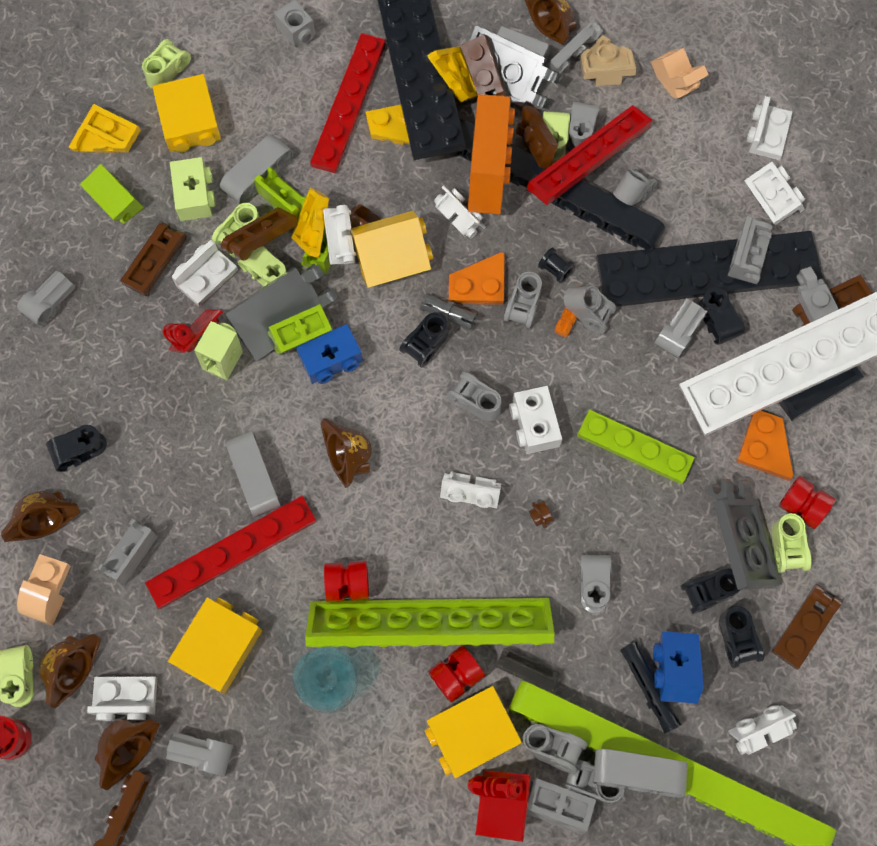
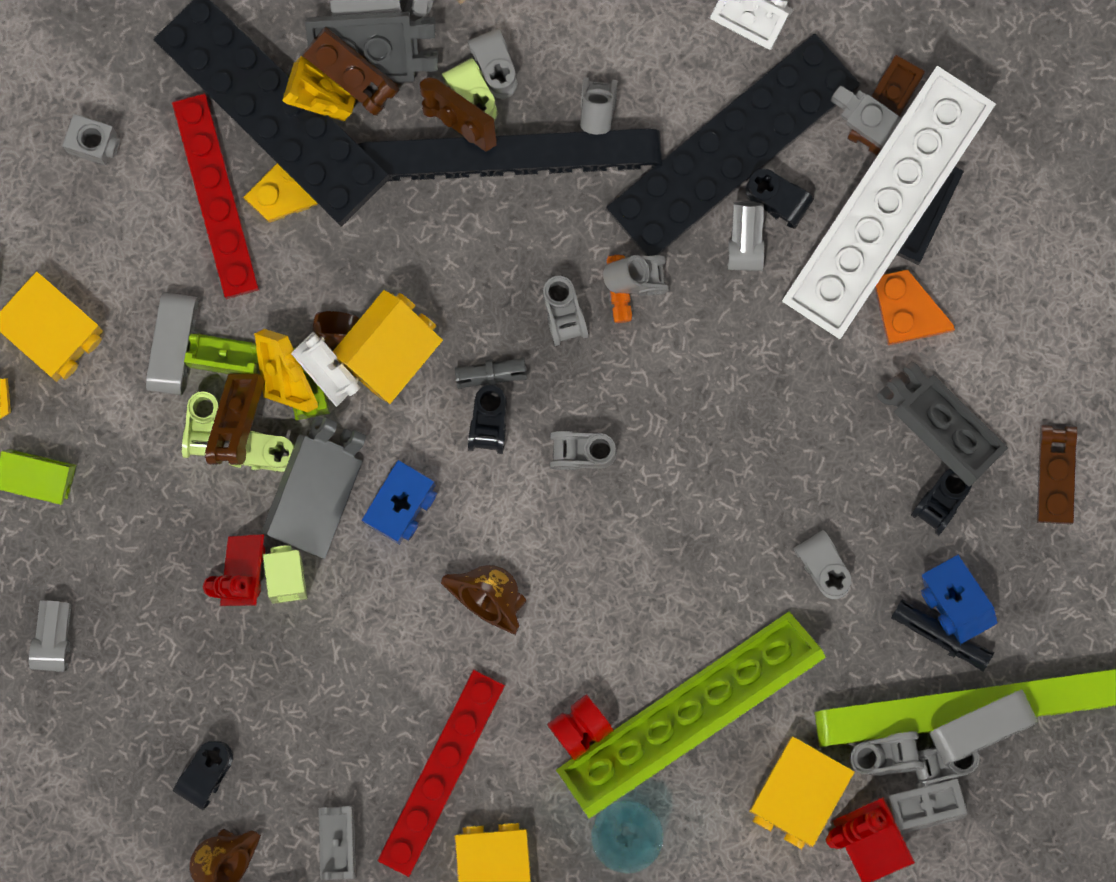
camera: 30 degrees left, 10 degrees up
(153, 259) = (133, 519): reddish brown plate -> none
(188, 202) = (99, 404): yellowish green brick -> none
(203, 273) = (201, 499): white bracket -> none
(252, 474) = (407, 680): light grey beam -> none
(299, 329) = (354, 499): lime hinge -> none
(453, 204) = (440, 252): white hinge -> none
(456, 673) = (748, 747): red wheel -> none
(458, 489) = (655, 547): white hinge -> none
(479, 282) = (500, 318): orange wing -> none
(490, 153) = (423, 169): orange wedge -> none
(527, 670) = (814, 697): clear smoke tile -> none
(536, 420) = (659, 435): white brick -> none
(540, 514) = (727, 531): reddish brown plate -> none
(556, 265) = (570, 247): black bush -> none
(589, 155) = (528, 98): red plate -> none
(635, 447) = (777, 396): lime plate -> none
(741, 638) = (1000, 531): black piece -> none
(750, 250) = (766, 104): light grey hinge -> none
(750, 732) = (1079, 591): white hinge -> none
(791, 546) = (994, 403): yellowish green piece -> none
(808, 503) = (986, 347): red wheel -> none

